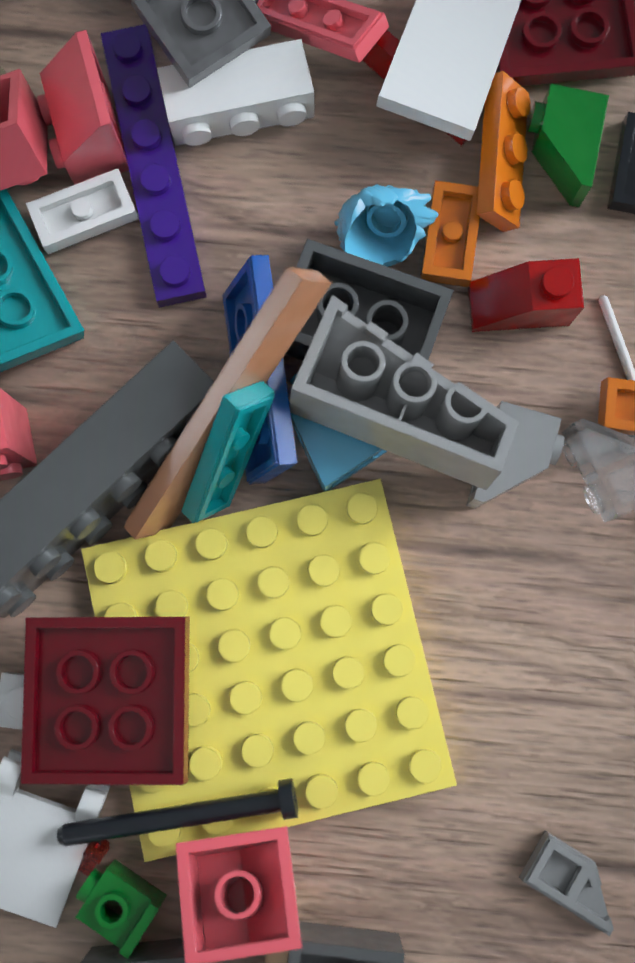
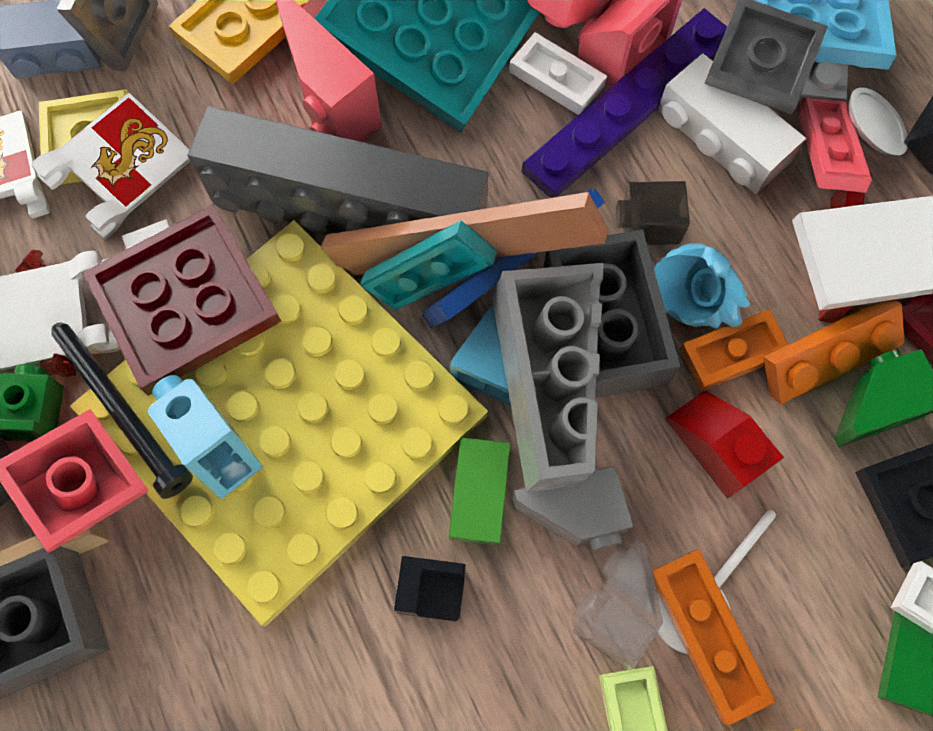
camera: 60 degrees right, 10 degrees down
(282, 748) = (201, 435): none -> medium azure torso
(283, 217) = (657, 209): none -> clear smoke brick
(445, 528) = (479, 491): none -> bright green tile
(507, 621) = (430, 588): none -> black panel

